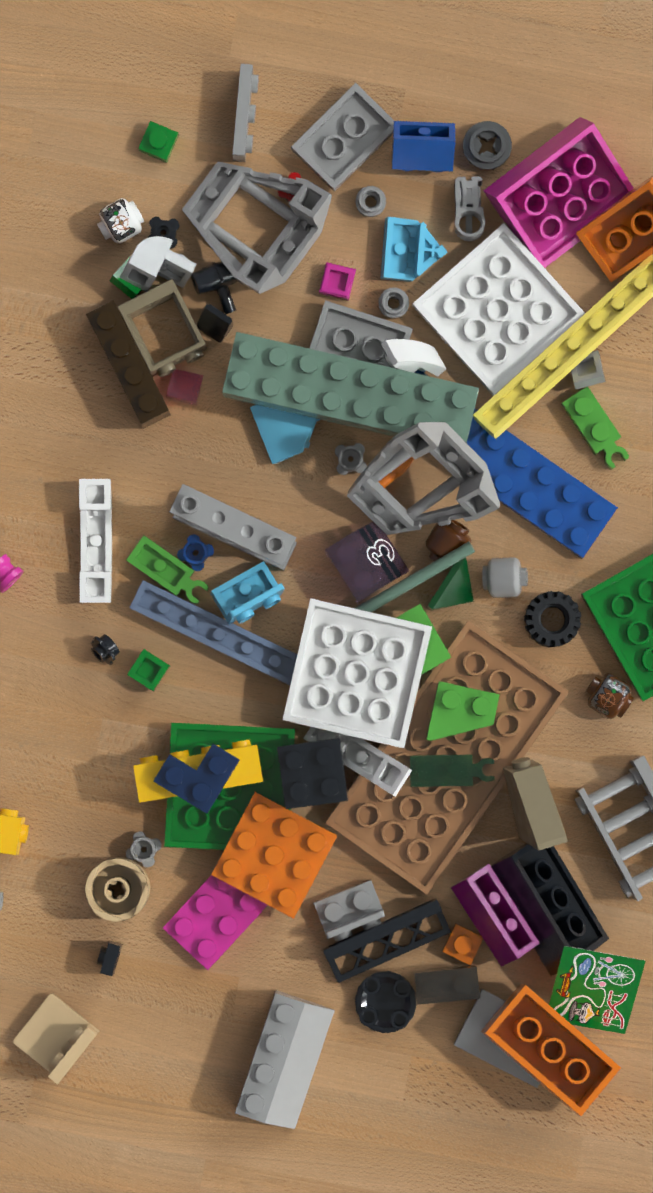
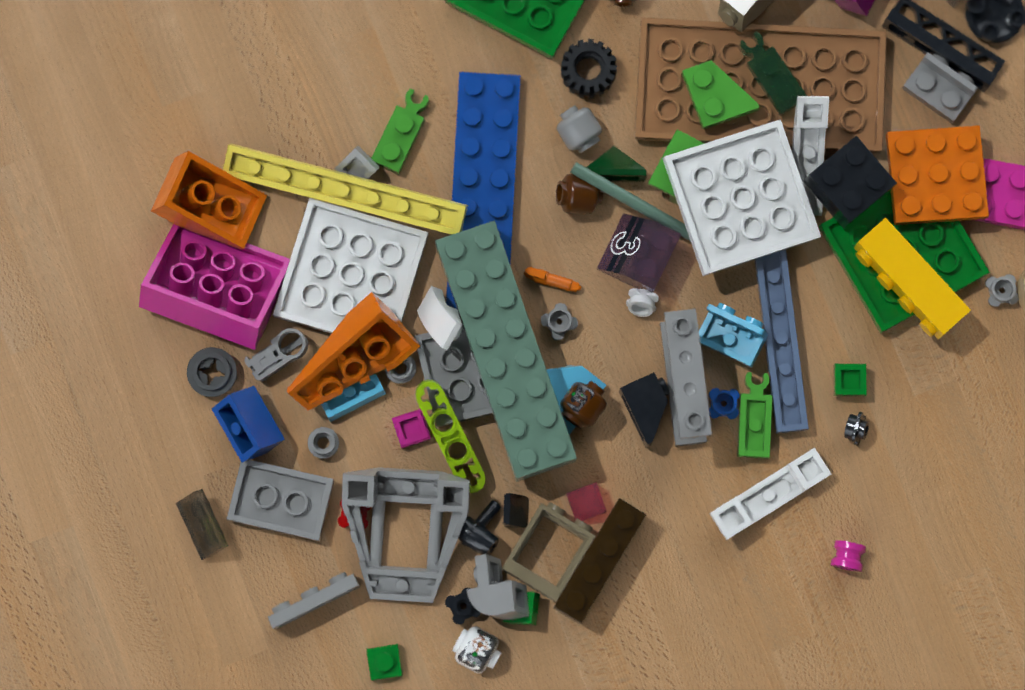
camera: 120 degrees left, 5 degrees down
(201, 785) = (926, 268): dark blue plate -> none
(234, 485) = (645, 403): none -> black slope
(265, 430) = (583, 404): none -> reddish brown head
(309, 302) = (452, 435): none -> lime beam
(322, 536) = (641, 302): none -> white plate
(364, 60) = (202, 524): none -> clear smoke plate
(430, 276) = (359, 347): none -> orange wedge
(469, 471) = (524, 189): light grey windscreen -> none

